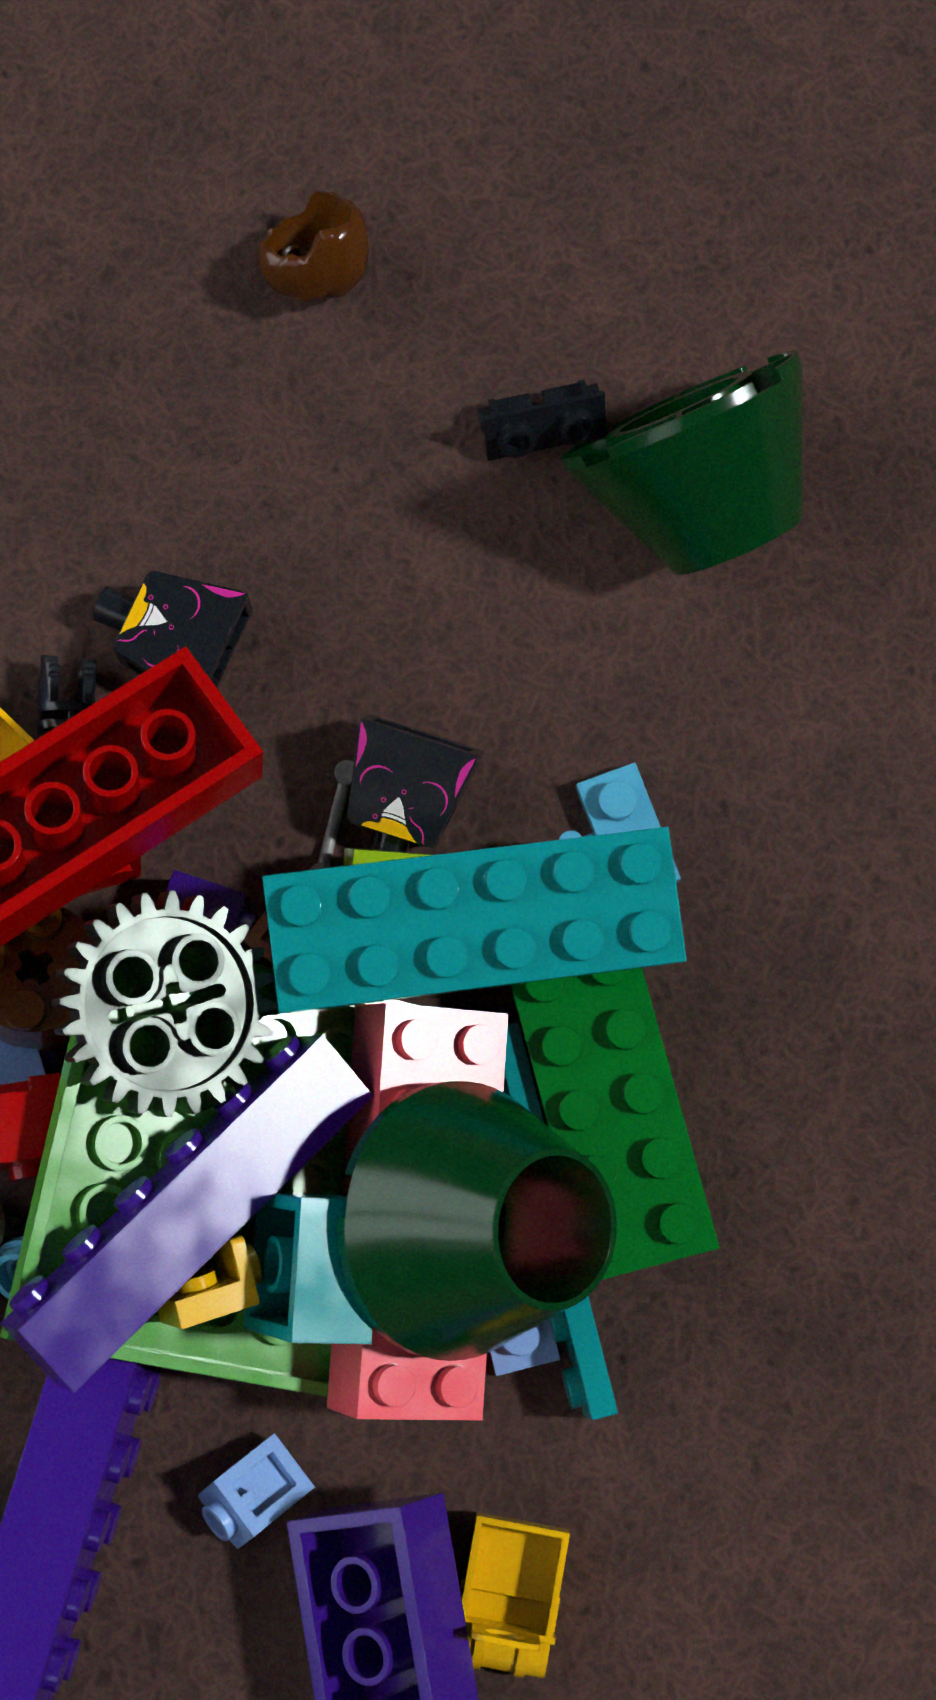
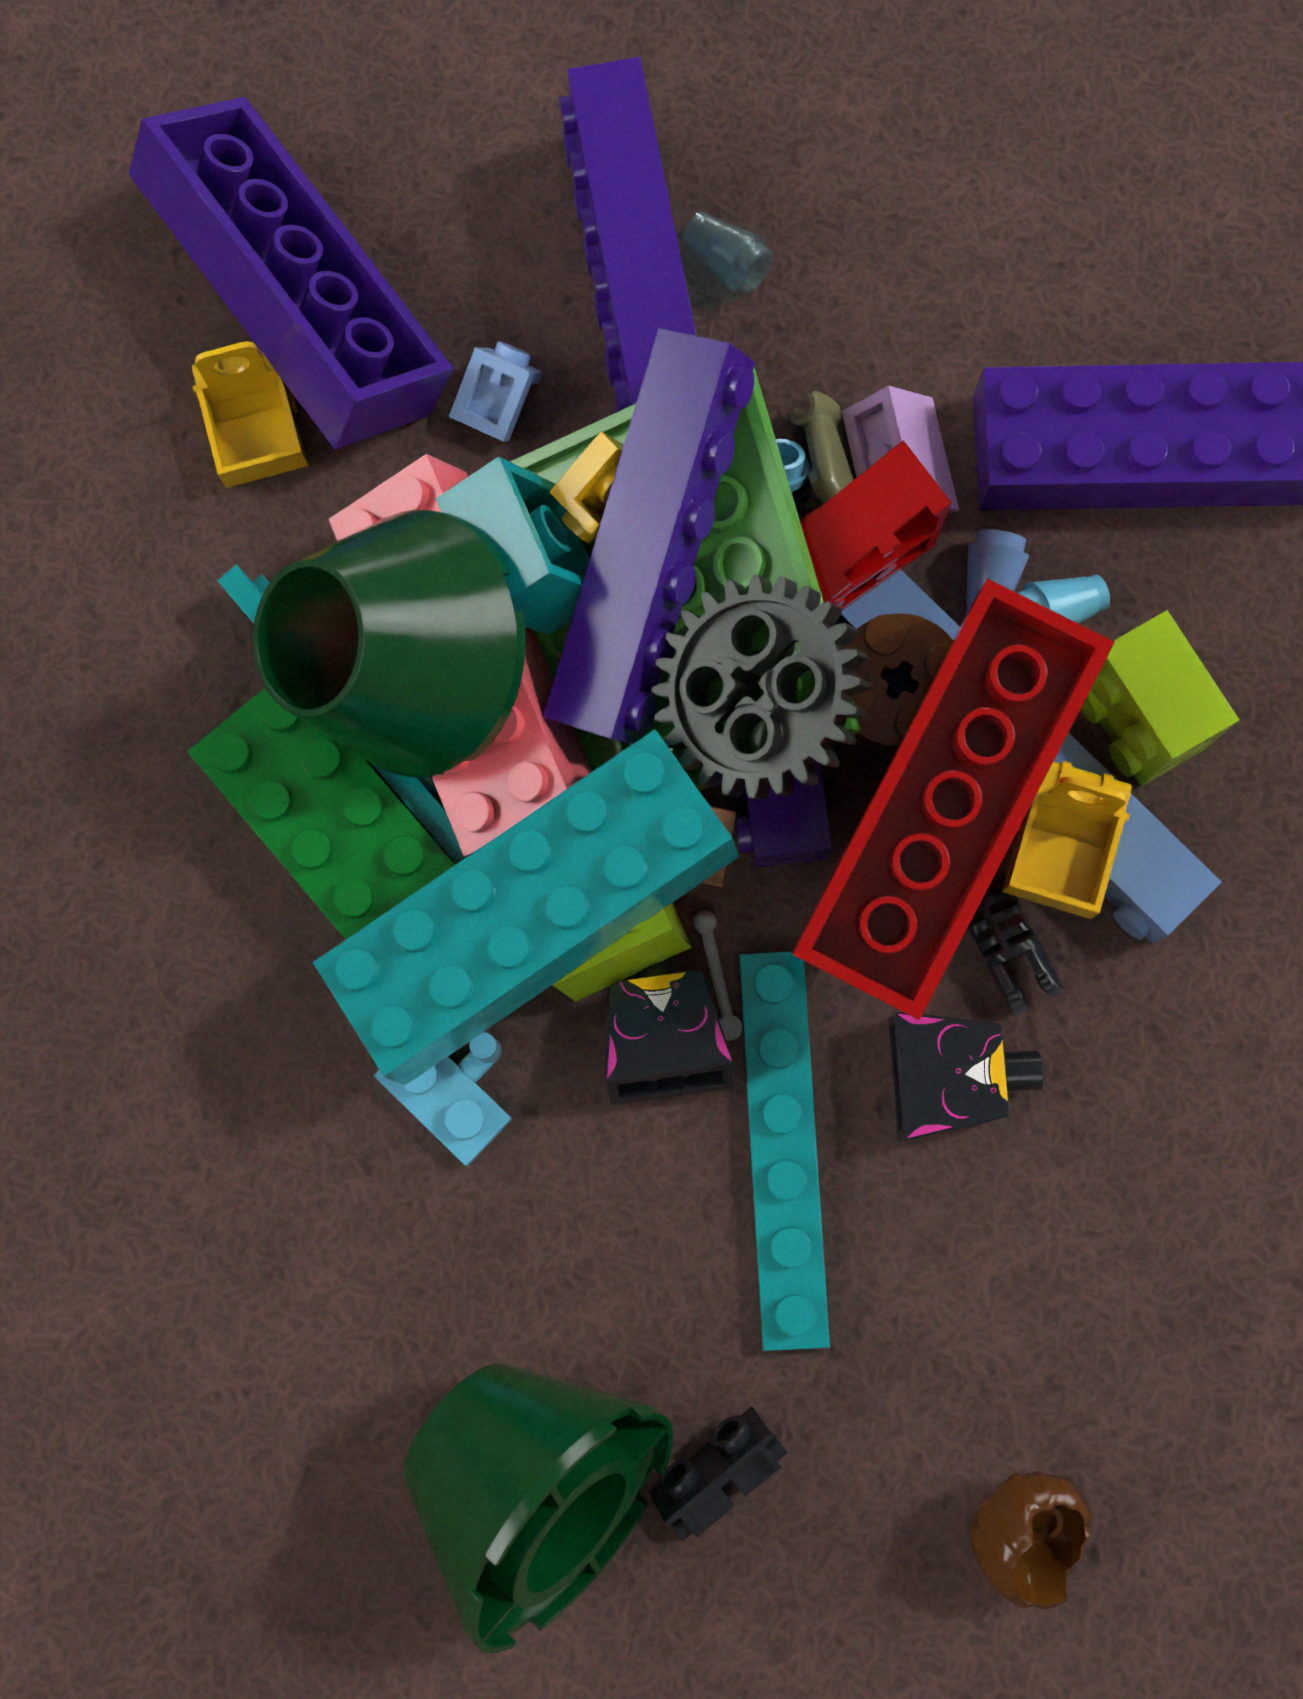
camera: 155 degrees right, 0 degrees up
(352, 651) = (783, 1152): none -> teal plate

